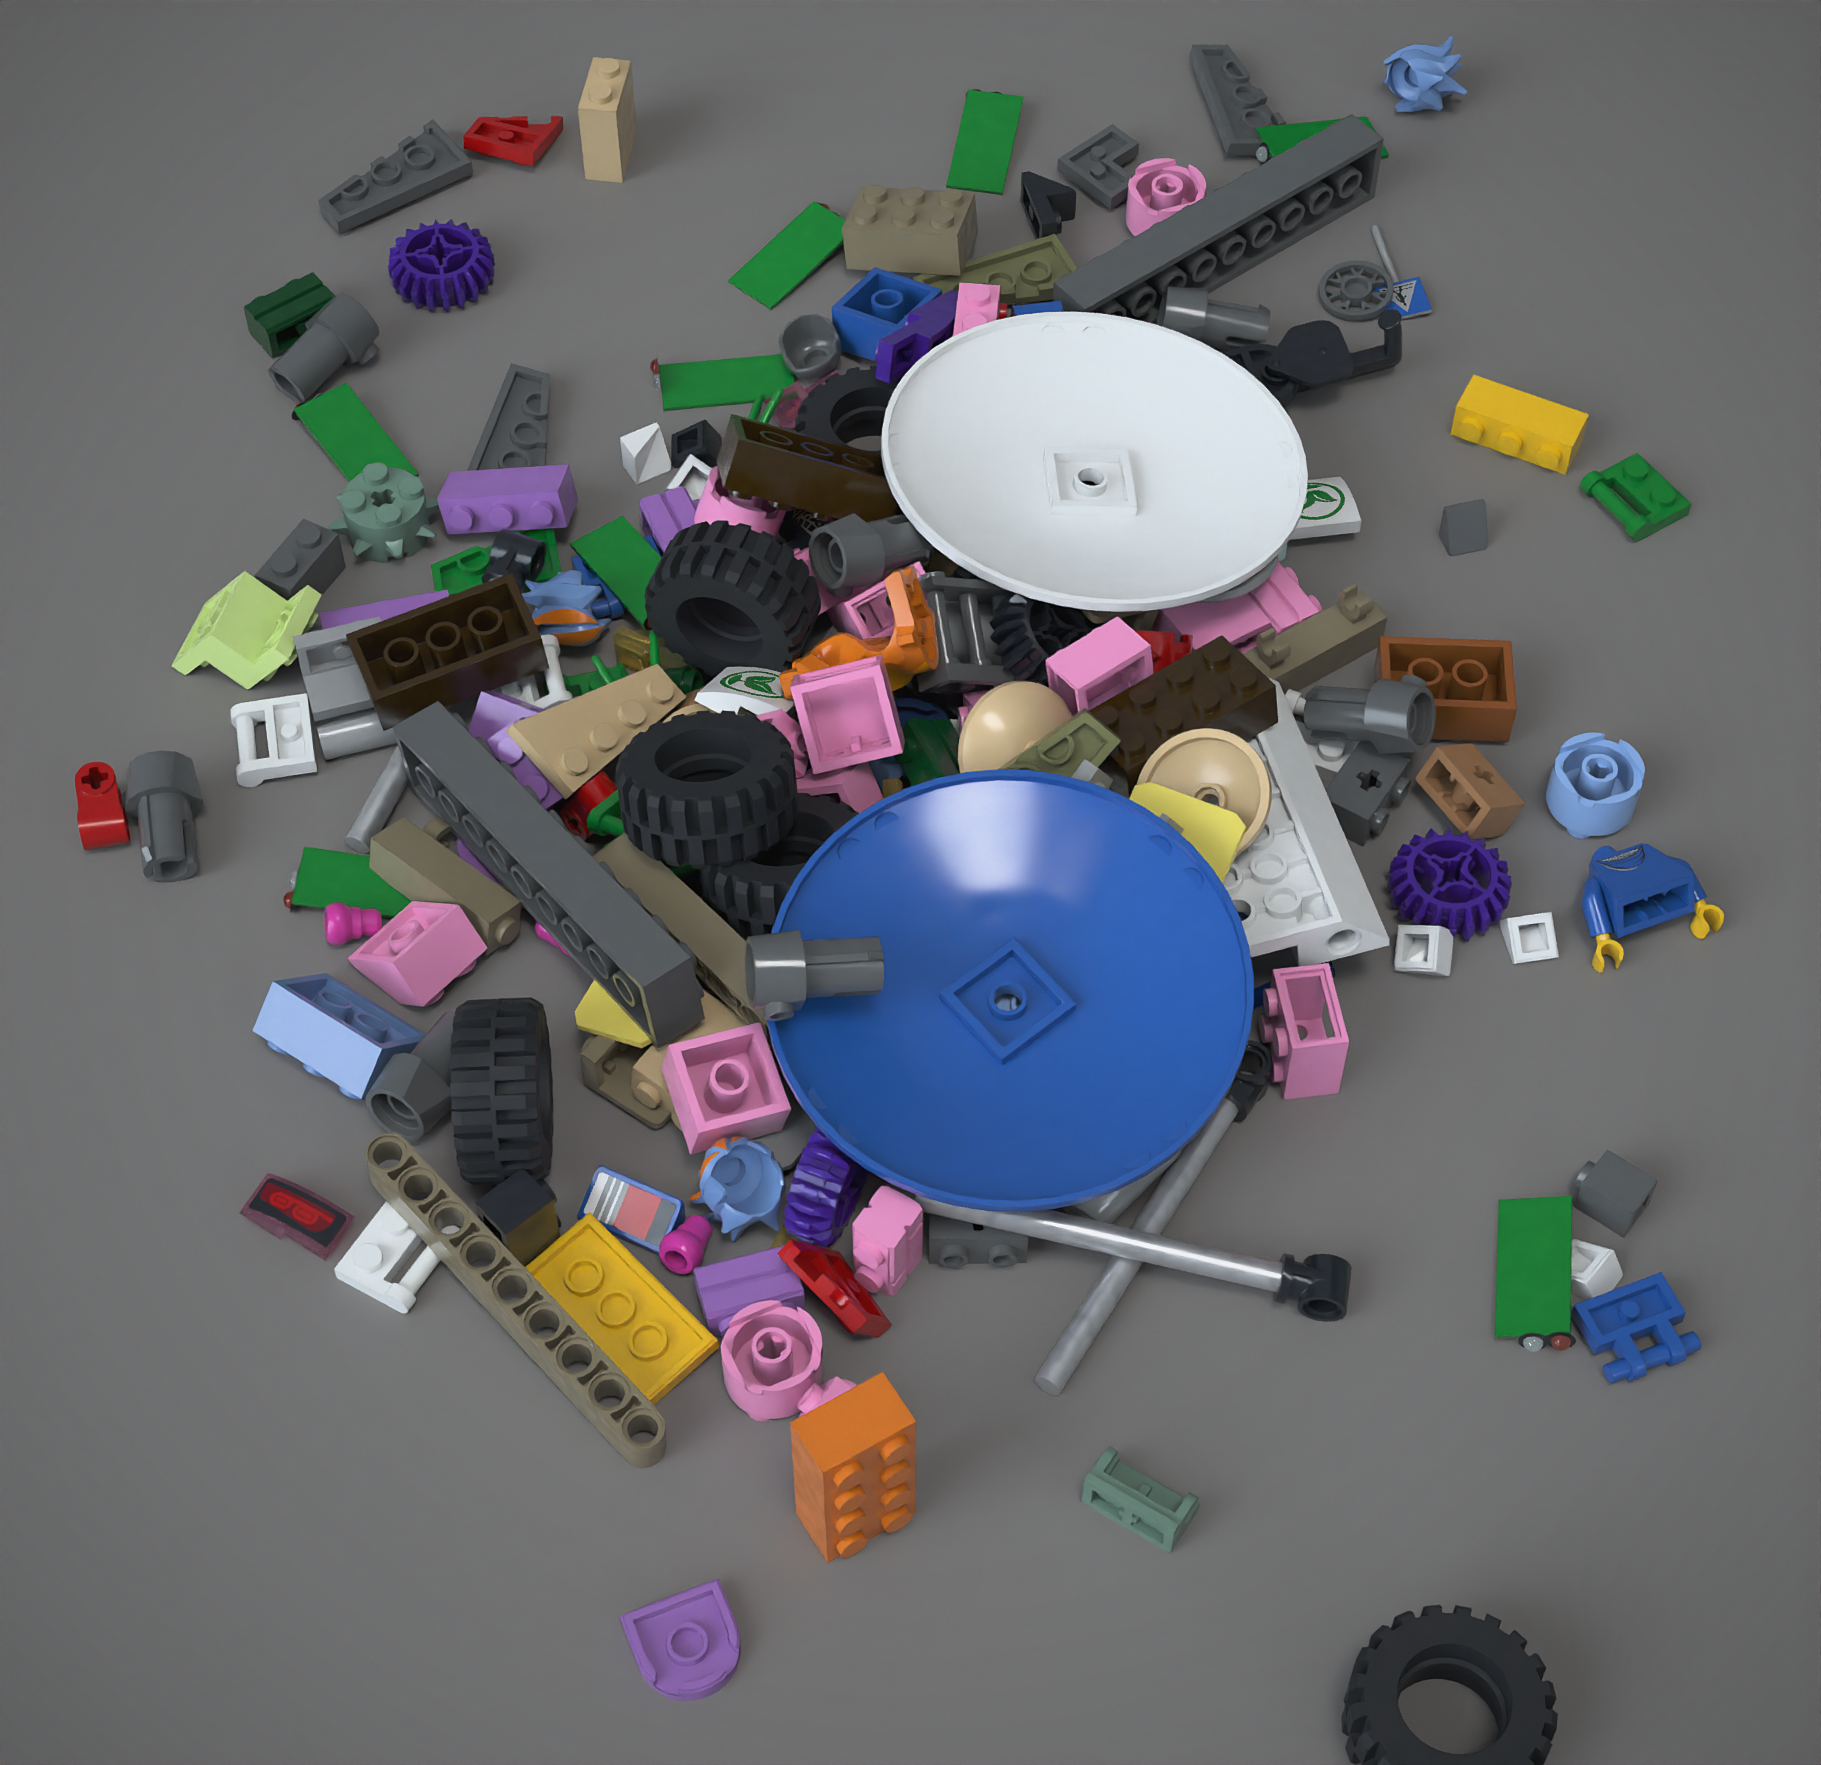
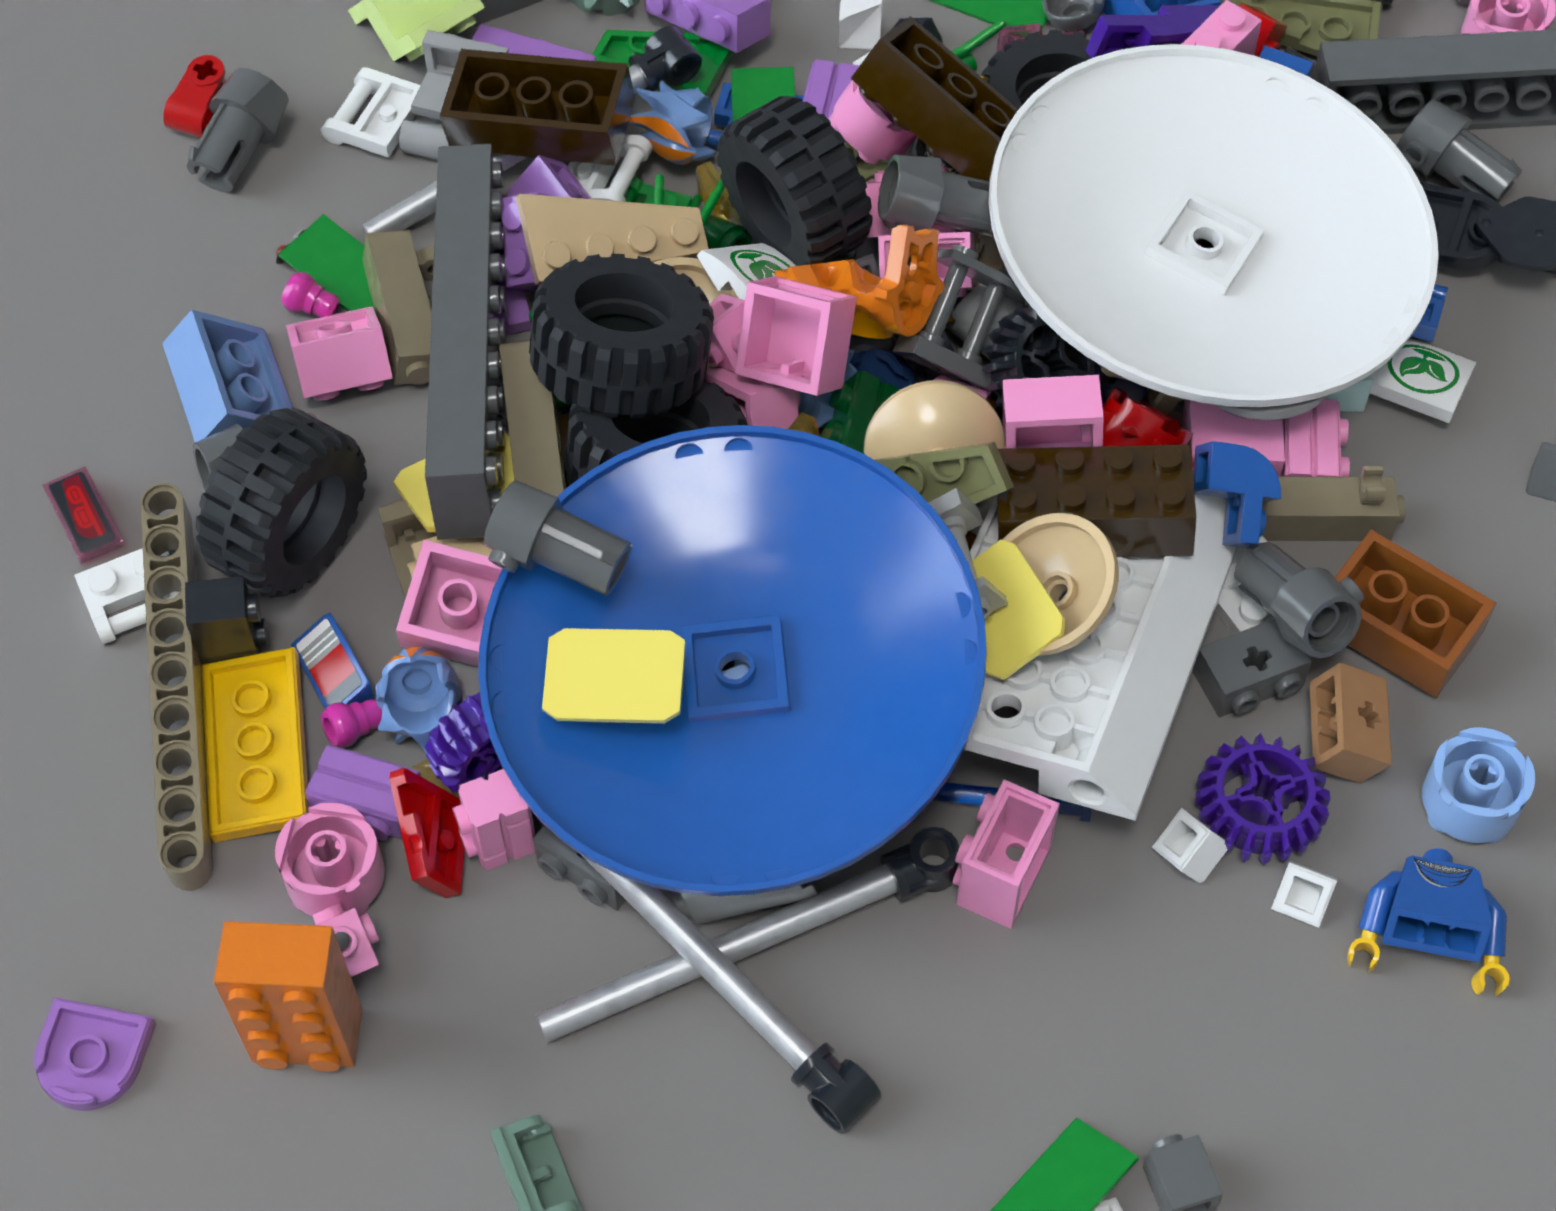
camera: 35 degrees right, 5 degrees up
(931, 1054) = (614, 675): none -> light yellow piece
(1275, 647) = (1246, 482): none -> blue brick

